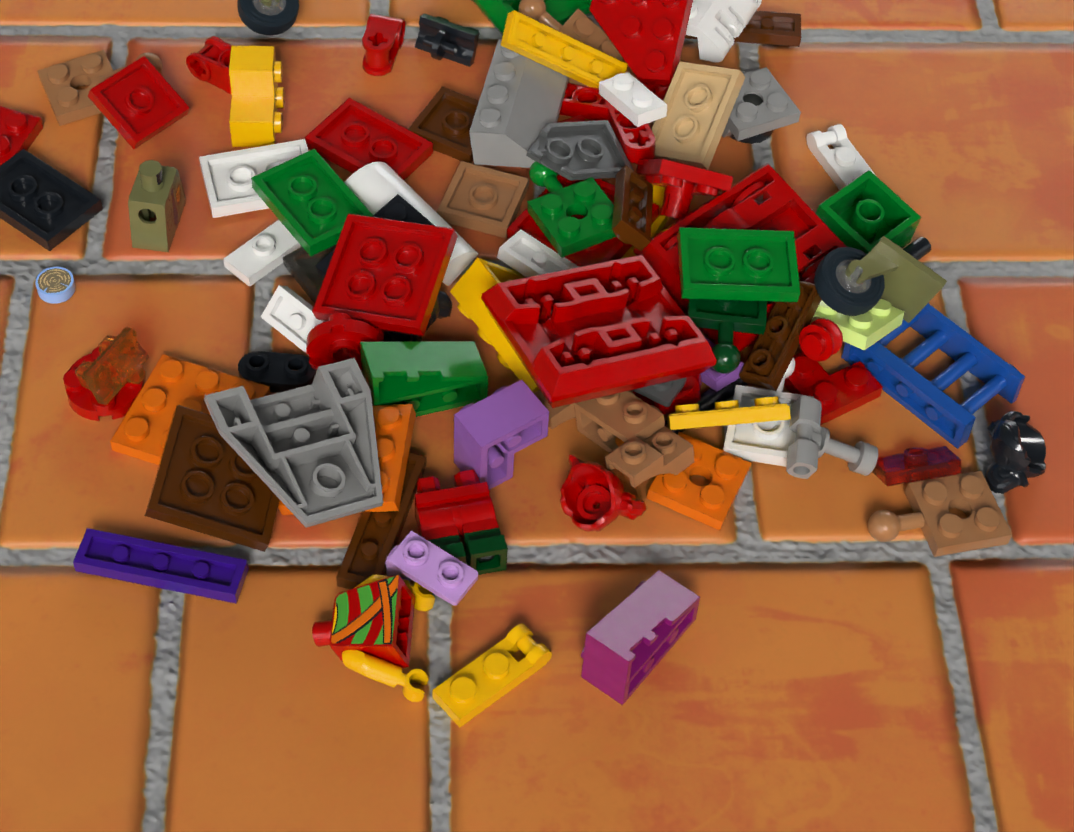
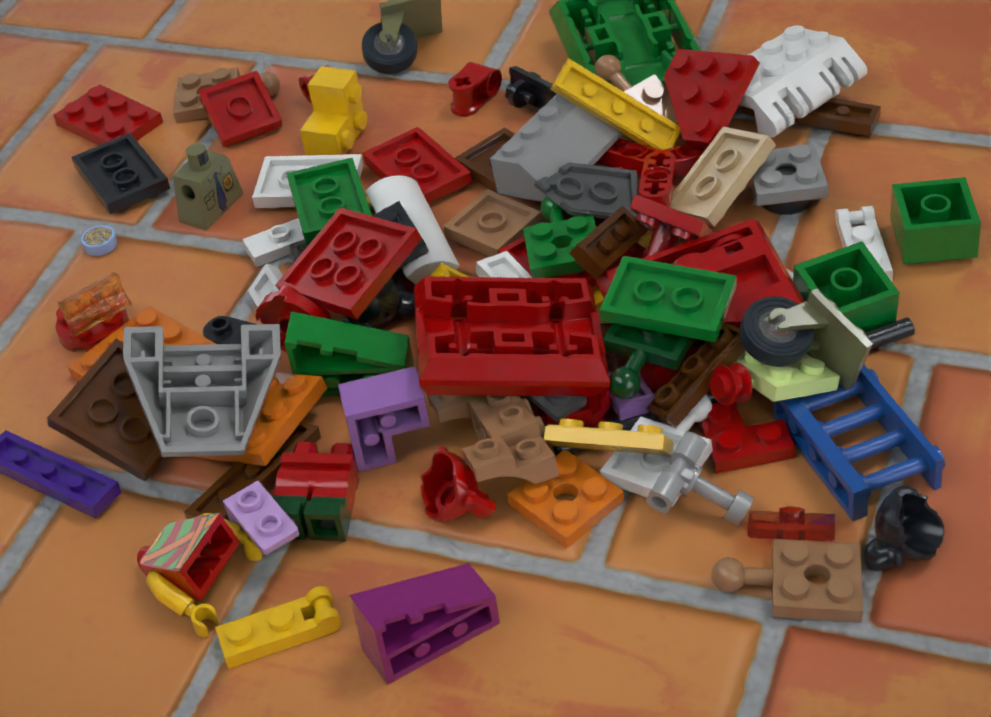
camera: 30 degrees right, 10 degrees down
(632, 99) = (668, 155): white plate -> none
(907, 133) = (935, 220): none -> green brick

